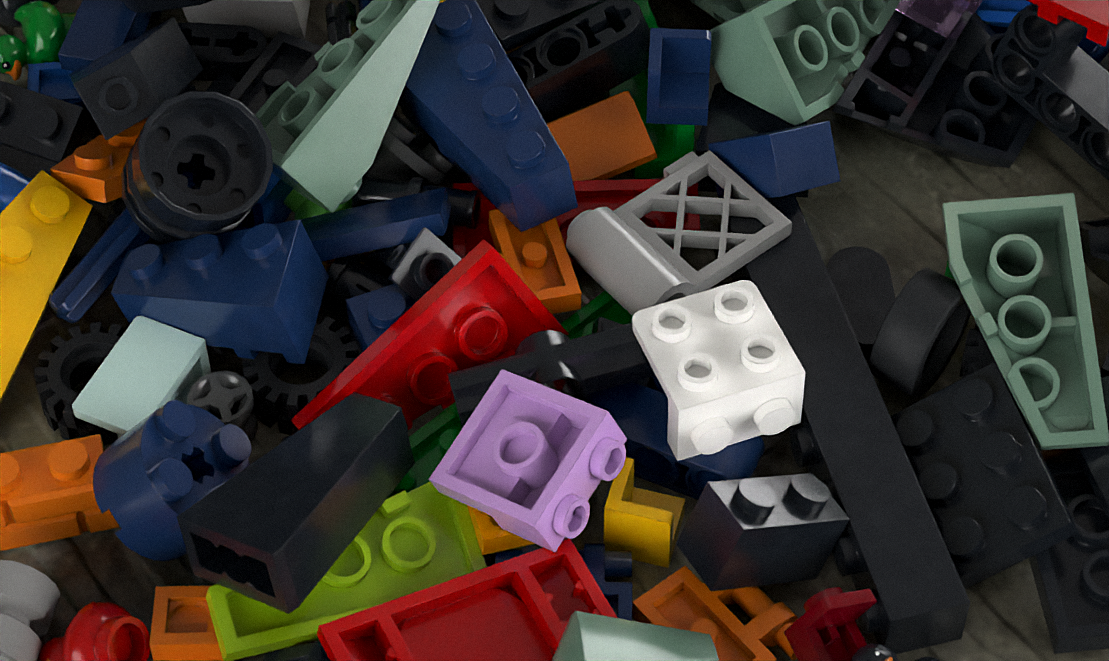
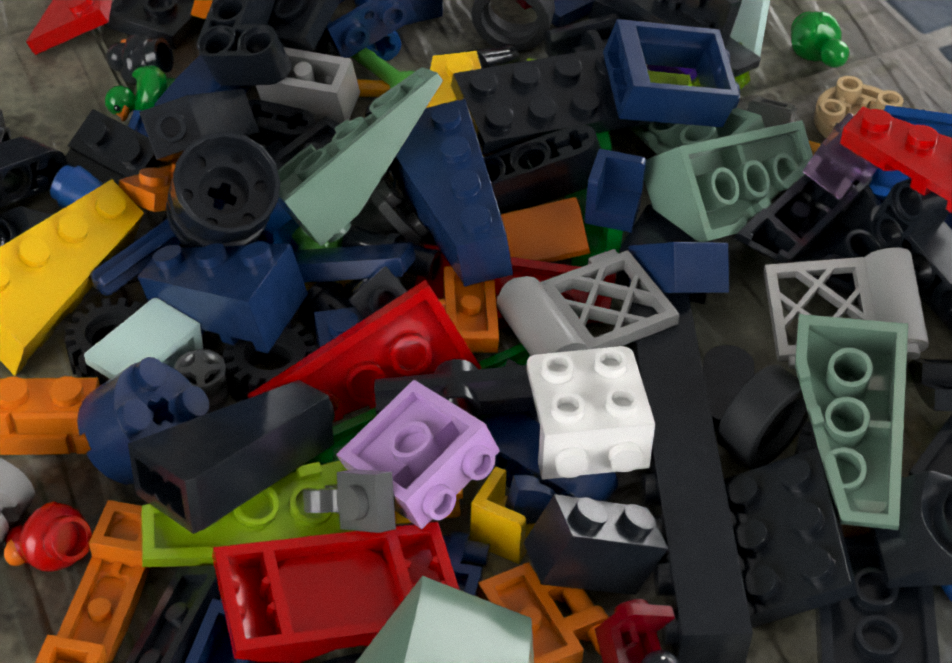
camera: 10 degrees right, 5 degrees down
(475, 527) = (361, 499): none -> dark grey plate
(671, 488) = (528, 497): none -> dark blue tile
(1022, 143) = (883, 287): none -> light grey piece

